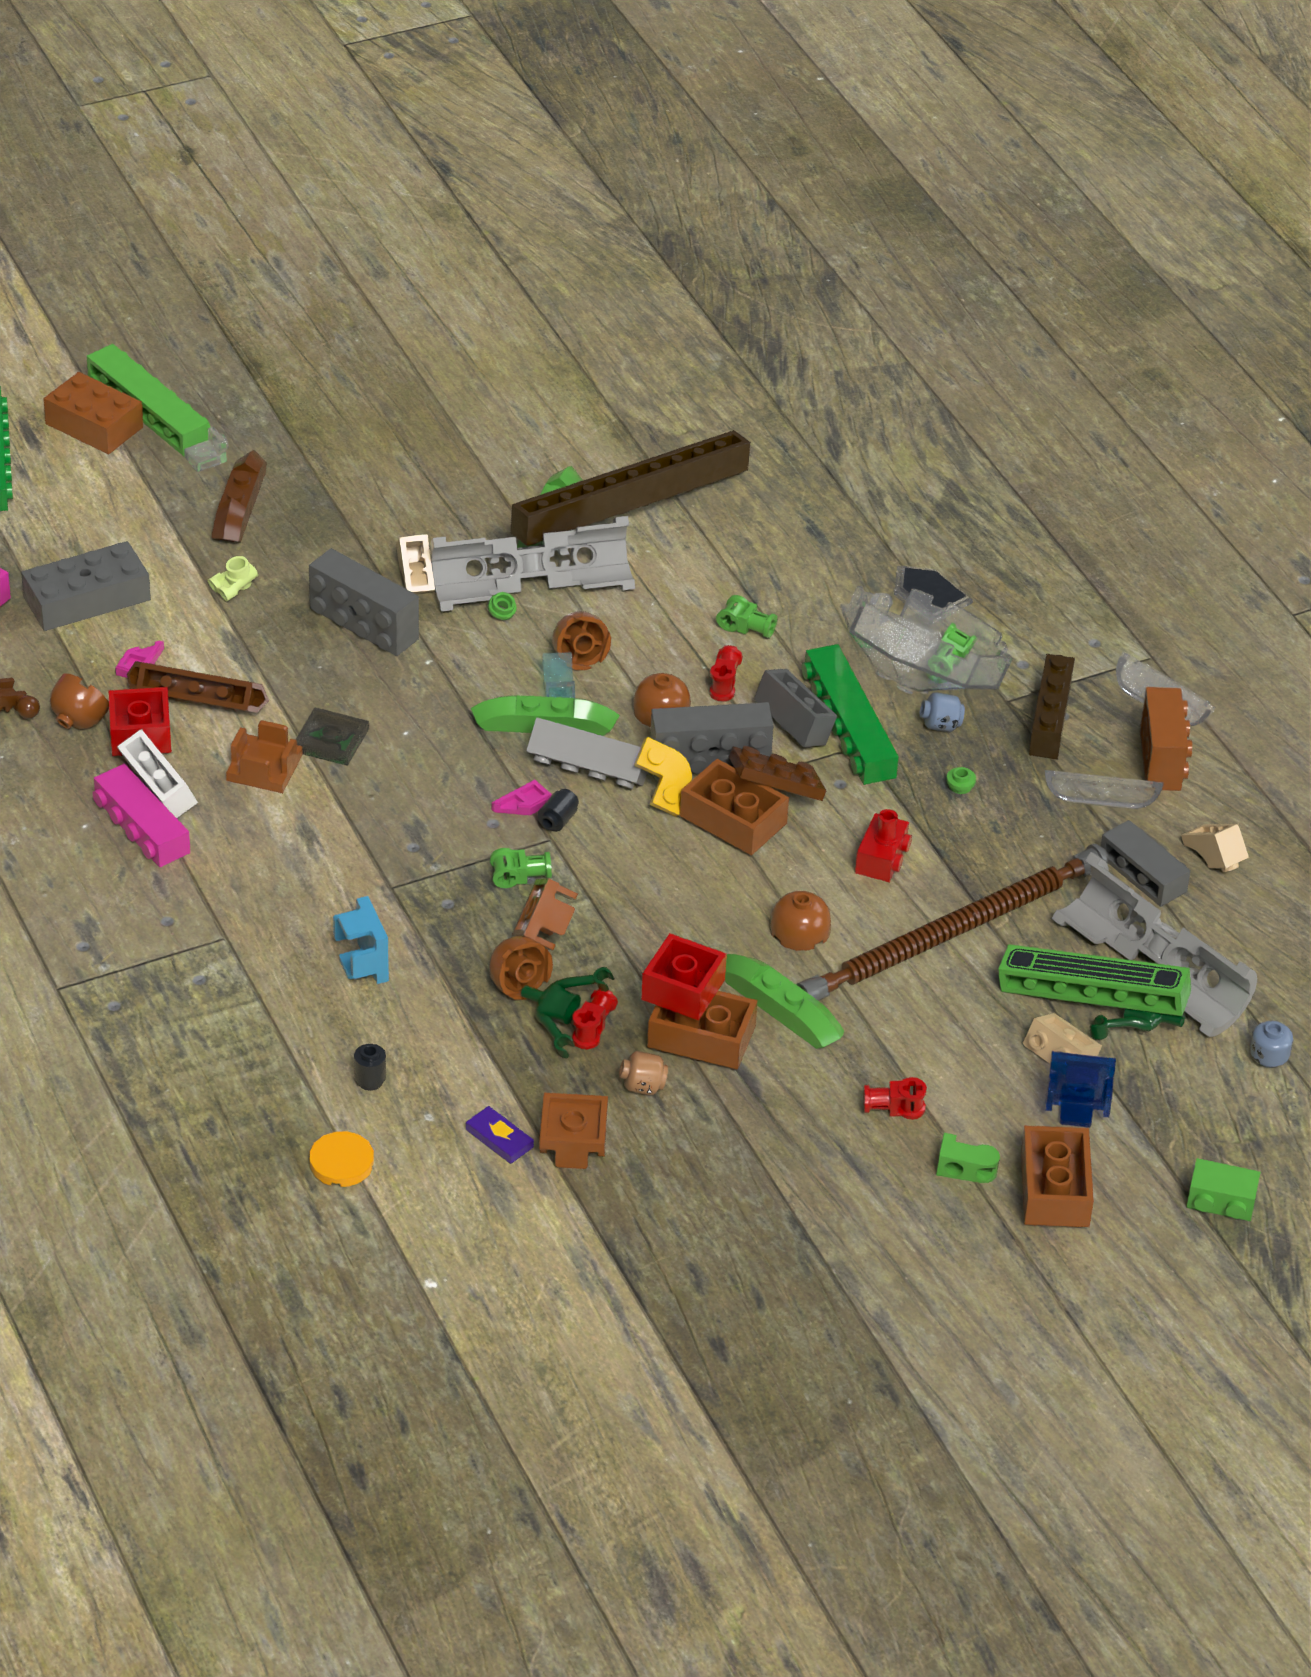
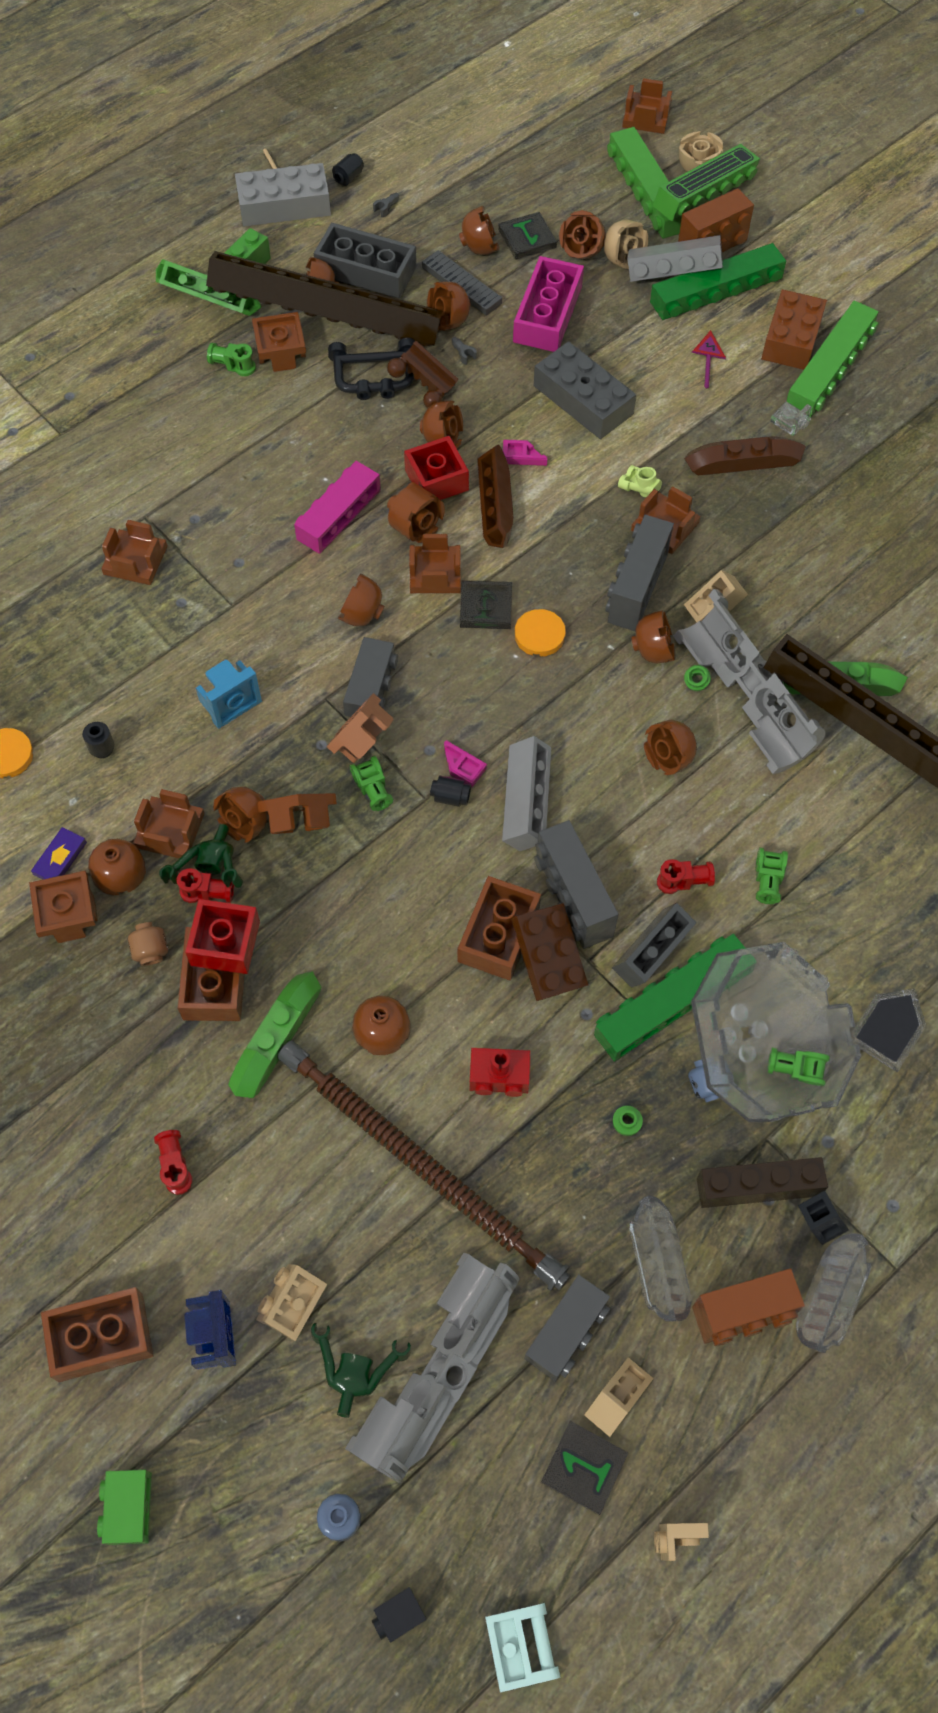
camera: 75 degrees right, 20 degrees up
(73, 486) = (709, 348): none -> piece
(115, 999) = (133, 553): none -> dark orange panel
(157, 773) = (369, 508): white brick -> none
(192, 749) = (415, 512): none -> dark orange brick
(287, 573) = (674, 509): none -> dark orange panel
(288, 820) = (362, 603): none -> dark orange cylinder
(388, 704) = (540, 632): none -> light orange tile
(390, 840) = (370, 674): none -> dark grey brick
(447, 616) = (654, 638): none -> dark orange cylinder
(461, 845) = (361, 730): none -> nougat panel
(502, 1035) = (167, 824): none -> dark orange panel
(519, 714) = (570, 749): bright green brick -> none
(527, 1082) = (116, 866): none -> dark orange cylinder
(558, 675) = (611, 751): clear light blue slope -> none
(658, 692) = (626, 835): dark orange cylinder -> none
(670, 768) = (520, 856): yellow plate -> none
(967, 1161) = (109, 1245): bright green leg -> none
(1095, 979) = (365, 1316): bright green brick -> none
(1098, 674) = (823, 1218): none -> black brick
(1267, 887) = (584, 1468): none -> clear smoke tile

